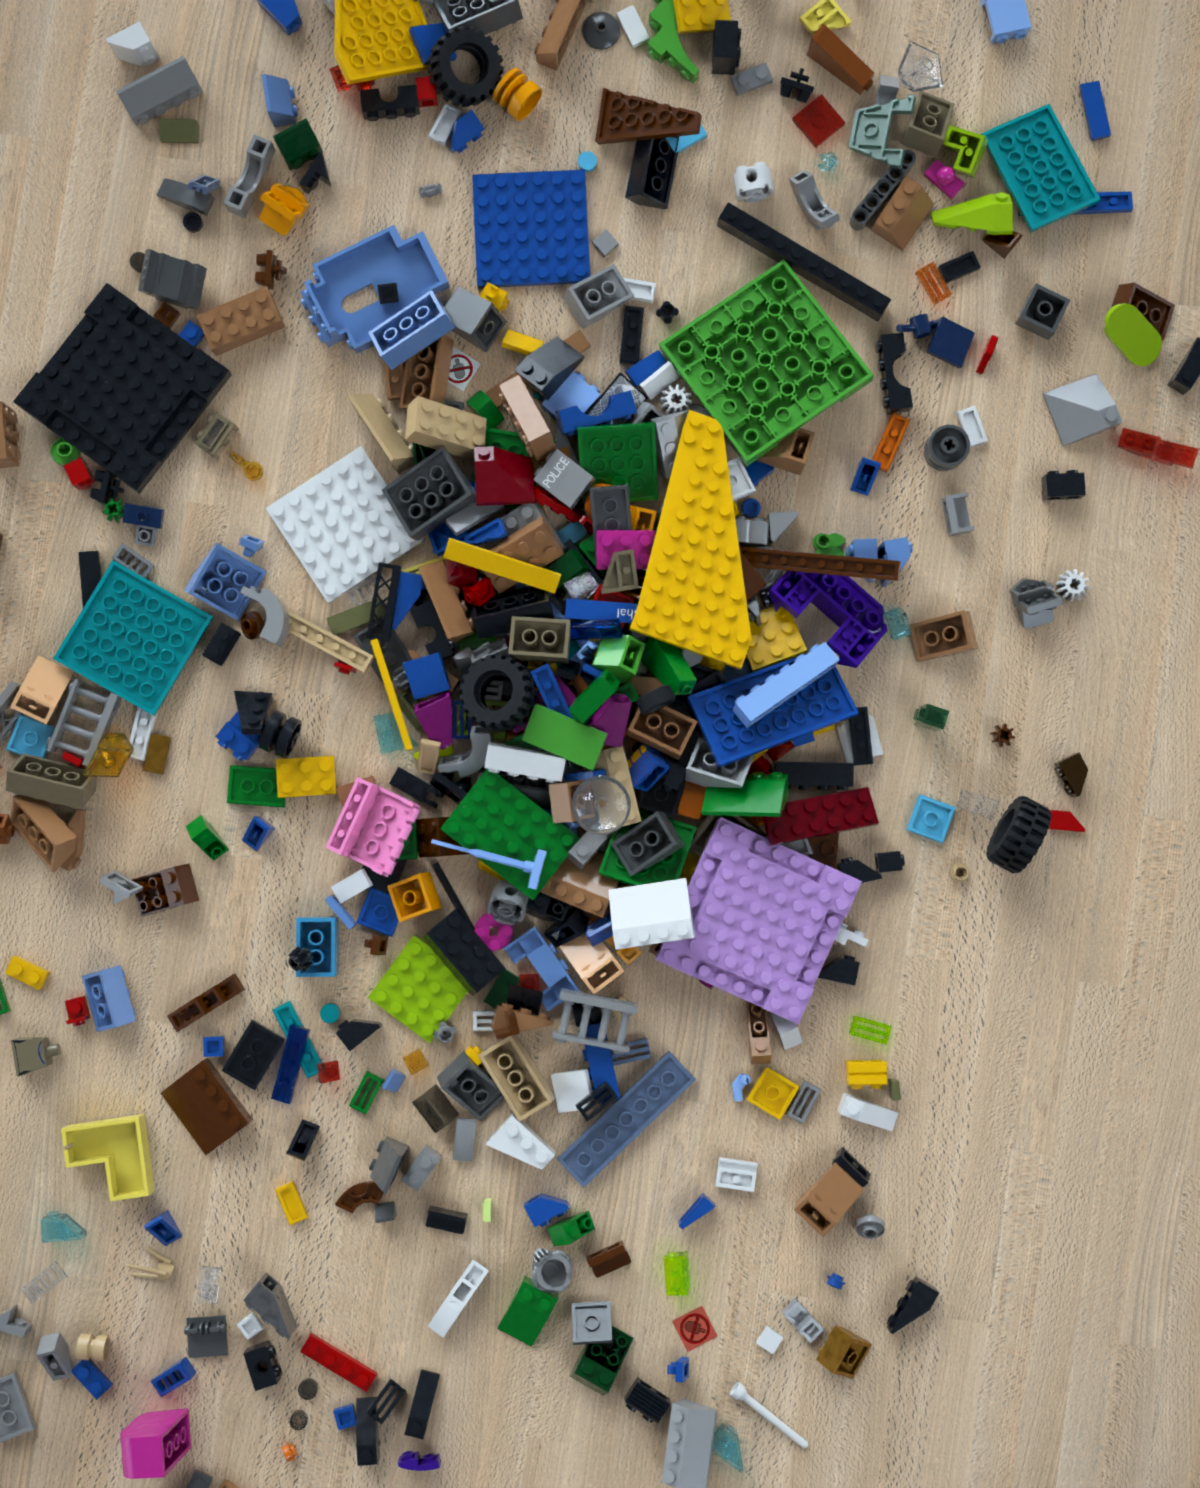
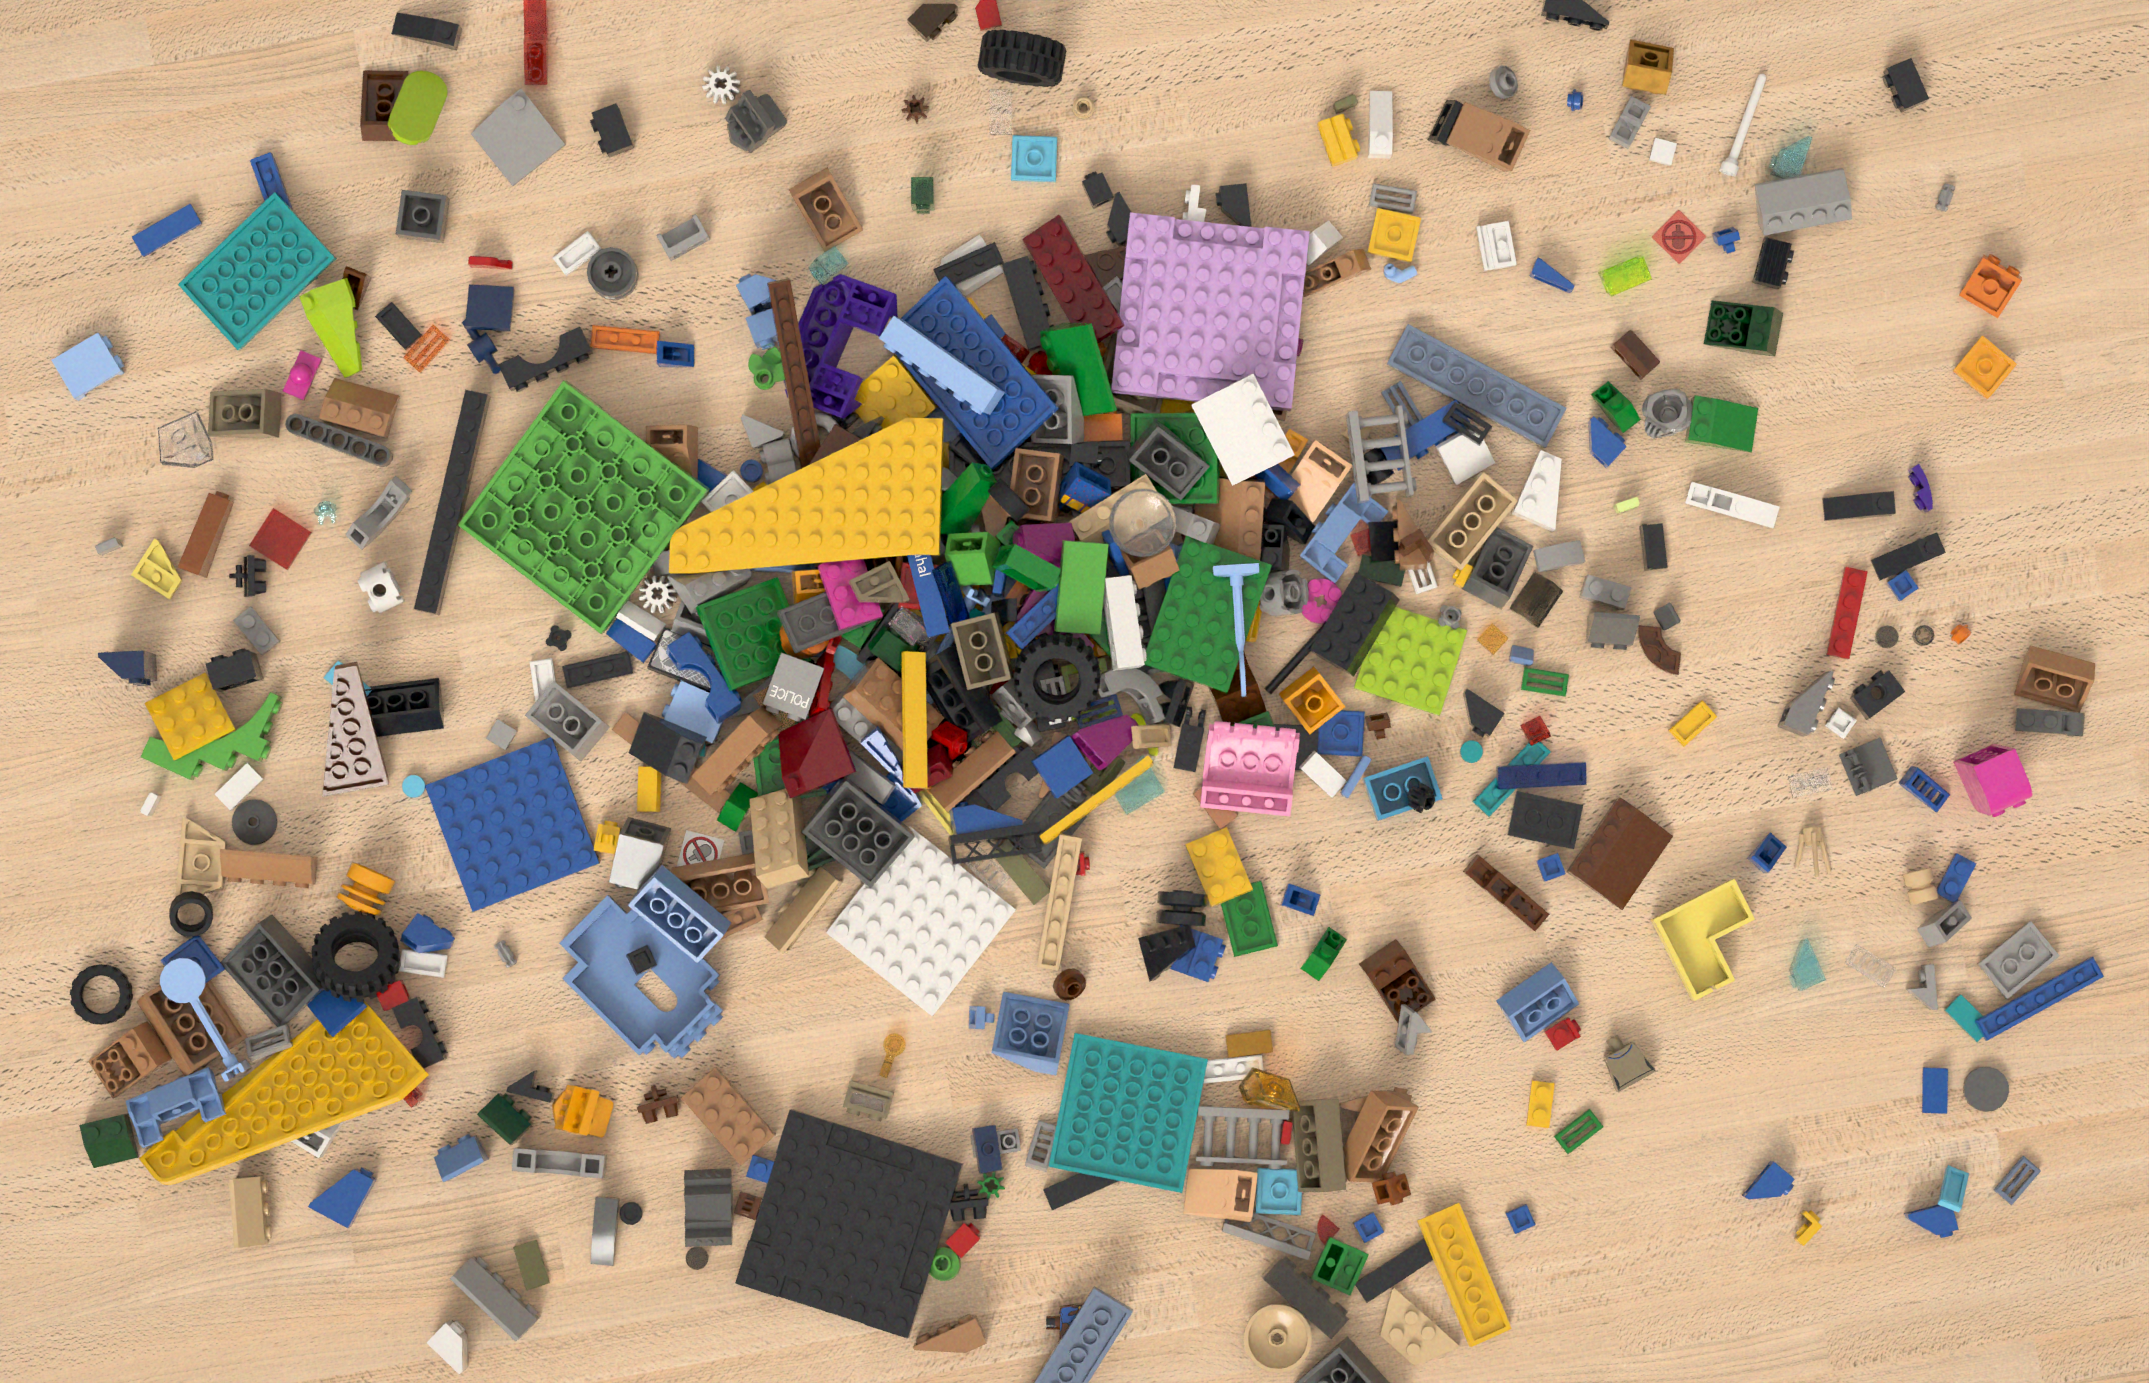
camera: 110 degrees left, 0 degrees up
(204, 183) = (592, 1210): sand blue tile -> none
(221, 644) = (1102, 1011): black brick -> none
(277, 617) = (1055, 955): light grey arch -> none
(303, 1140) = (1618, 732): black slope -> none
(393, 1404) = (1852, 540): black tile -> none
(591, 1323) = (1708, 350): plate -> none
(854, 1025) = (1290, 170): clear neon green tile -> none
(872, 130) = (273, 474): sand green wing -> none
(887, 89) = (224, 472): light grey slope -> none
(970, 149) = (260, 356): lime brick -> none

